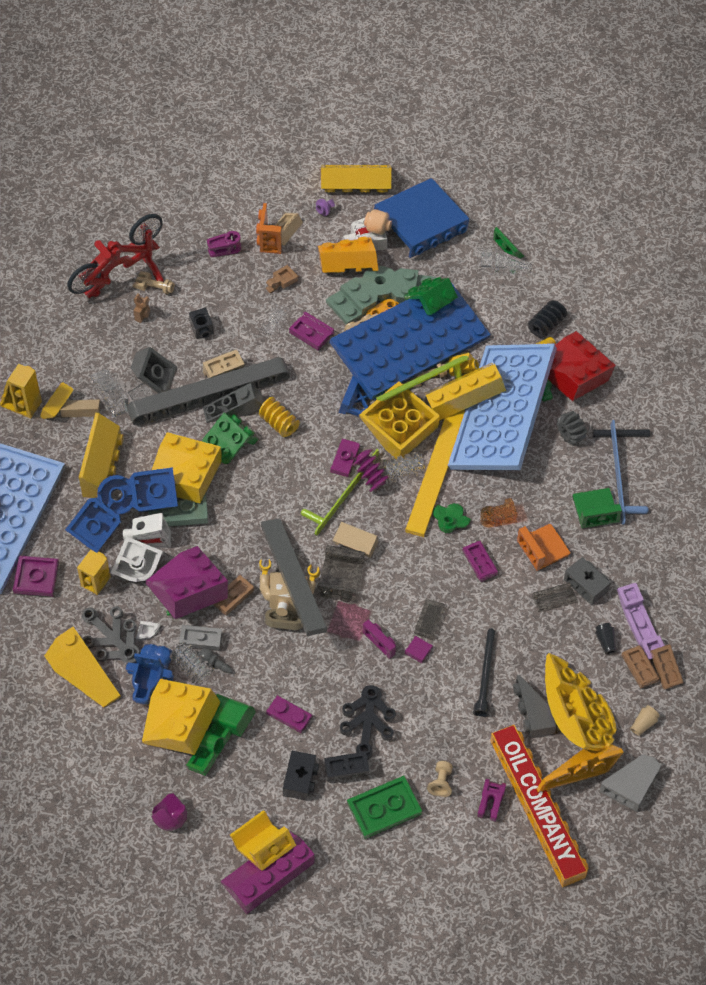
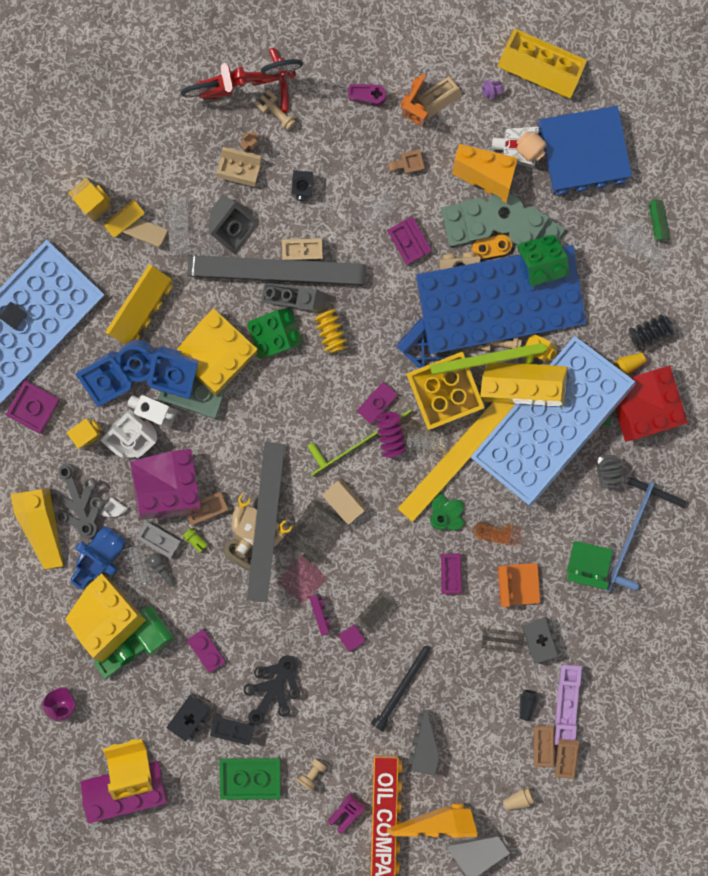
camera: 25 degrees right, 30 degrees up
(140, 329) = (239, 166): none -> tan bracket
(234, 624) = (194, 539): none -> lime pin
(576, 707) = (463, 769): yellow brick -> none

